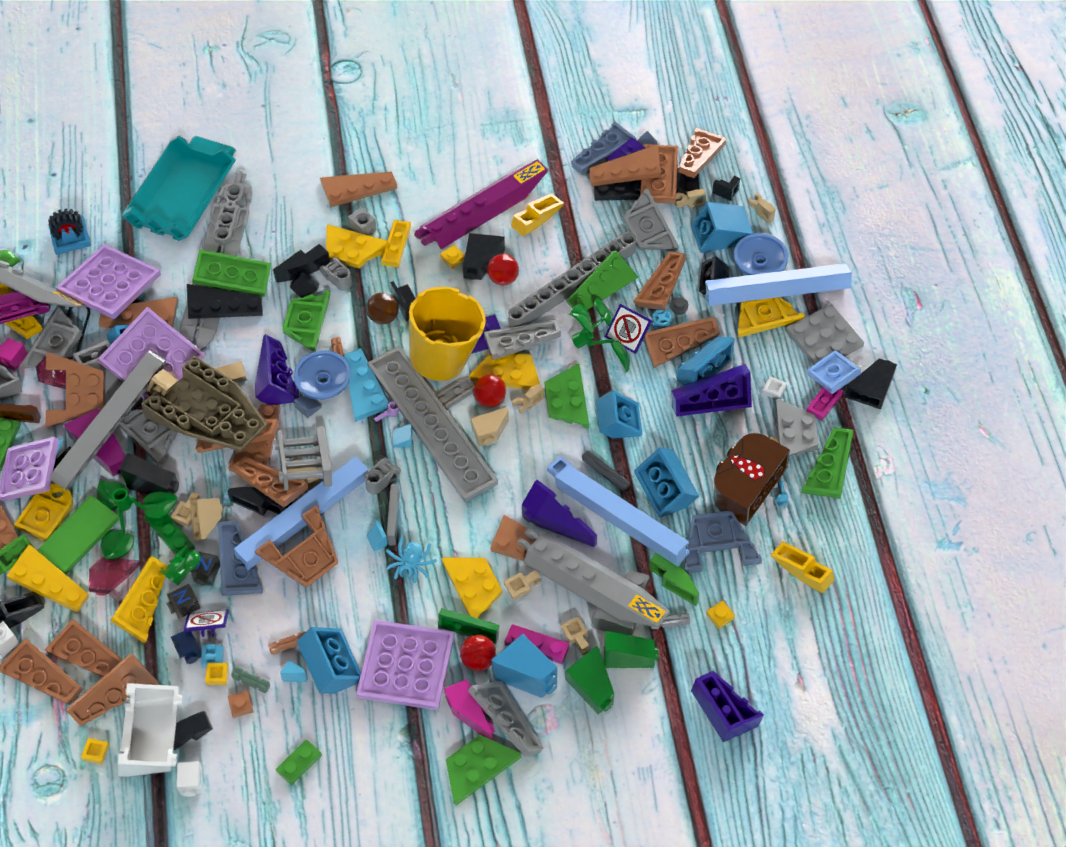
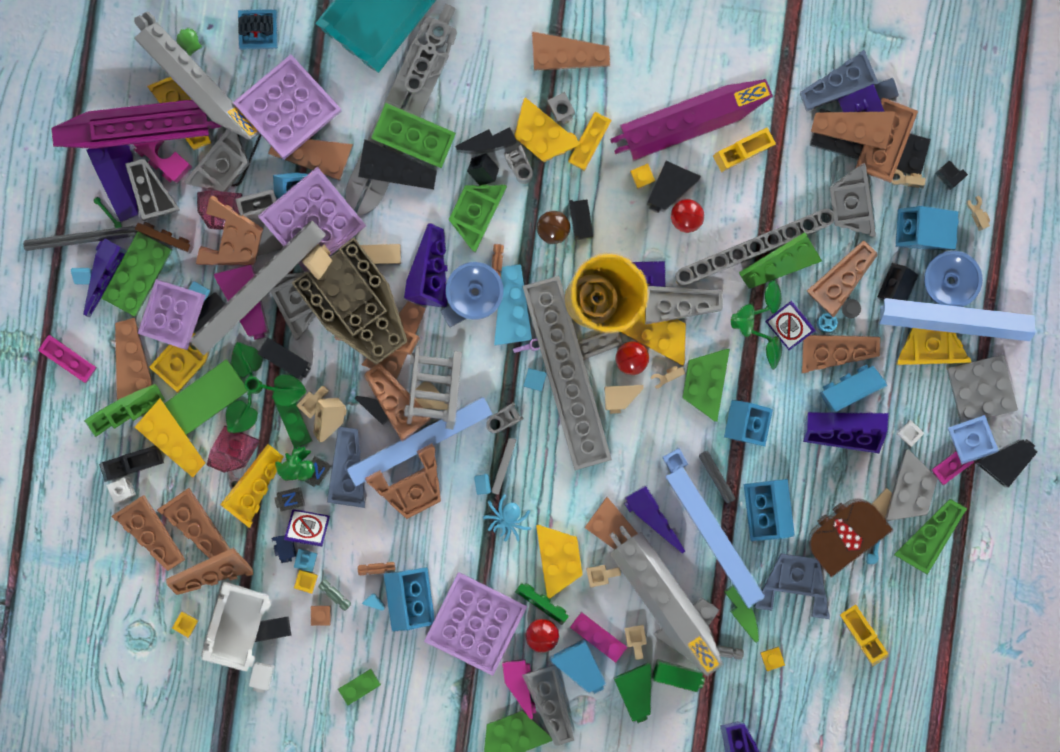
camera: 15 degrees right, 30 degrees up
(700, 152) = (941, 121): nougat wing -> none

